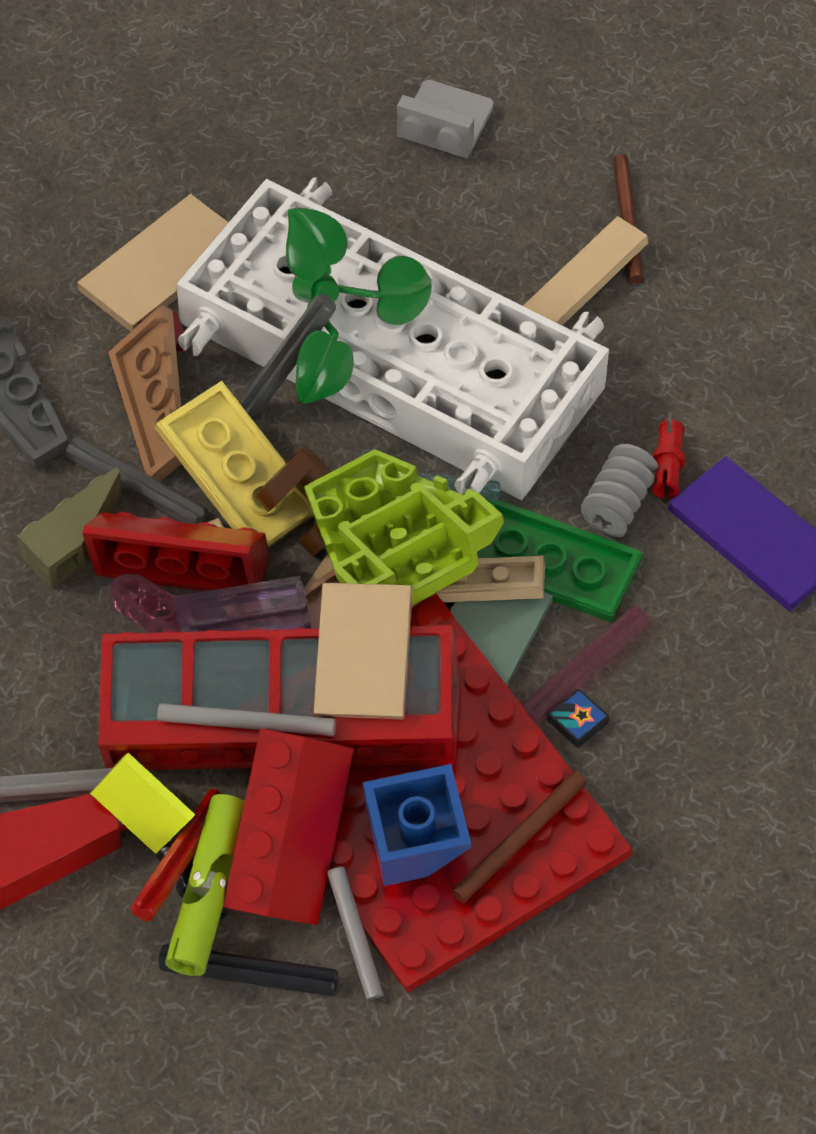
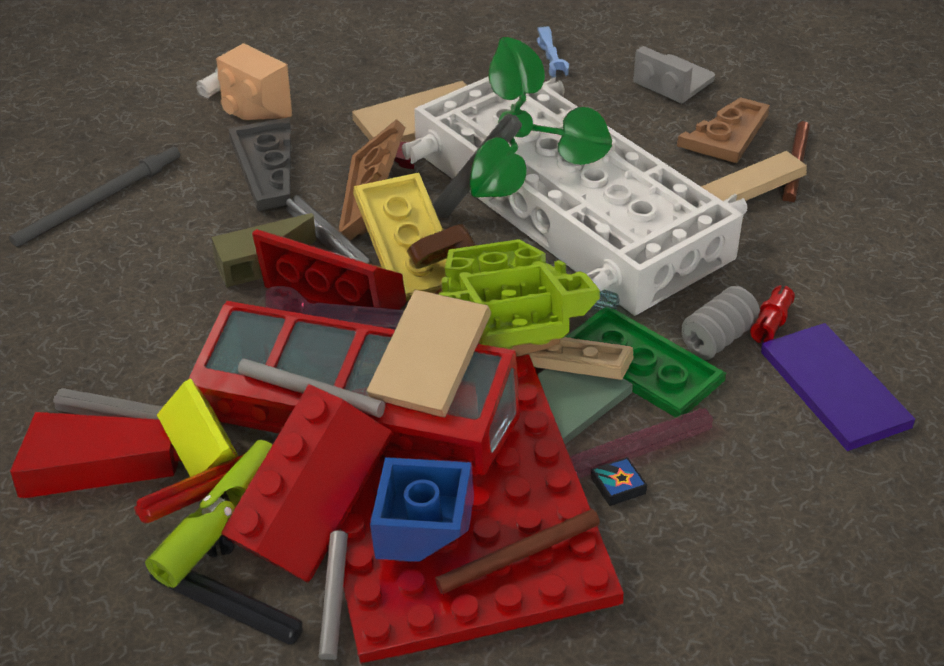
camera: 20 degrees right, 15 degrees down
(265, 95) = (545, 43): none -> light blue piece
(538, 195) = (729, 132): none -> medium nougat wing

